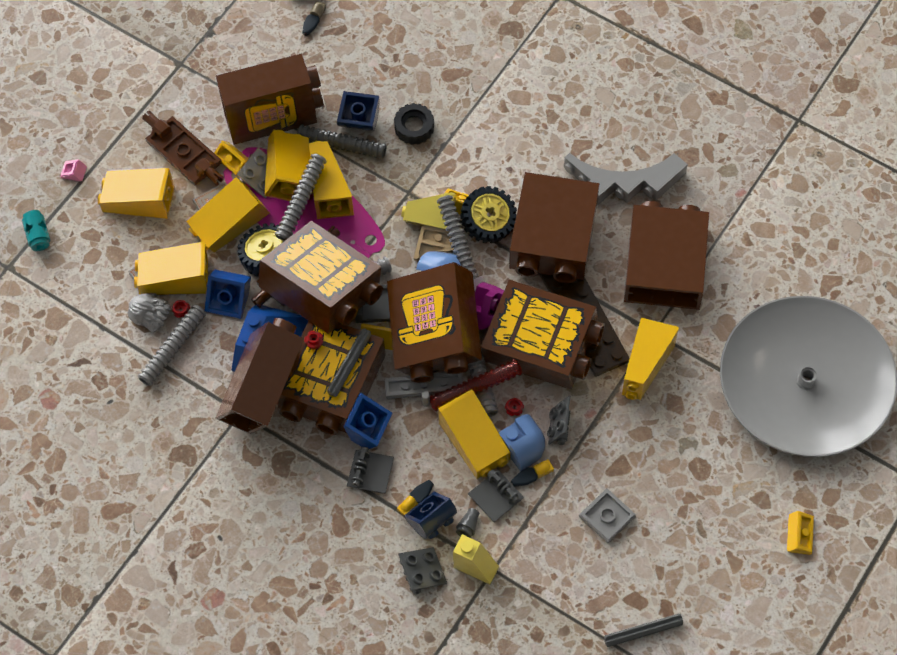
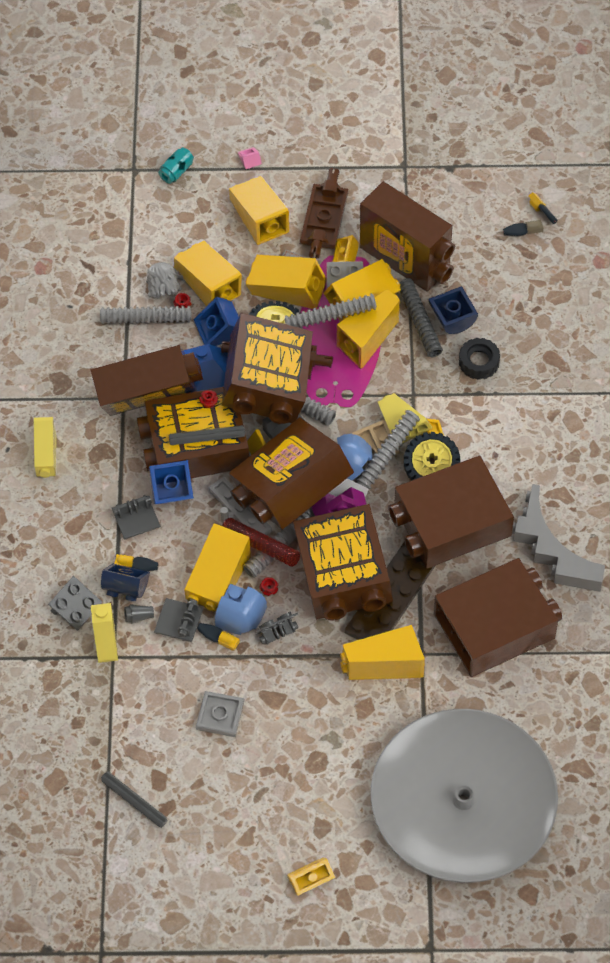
camera: 55 degrees right, 5 degrees down
(249, 503) = (45, 447): none -> light yellow slope

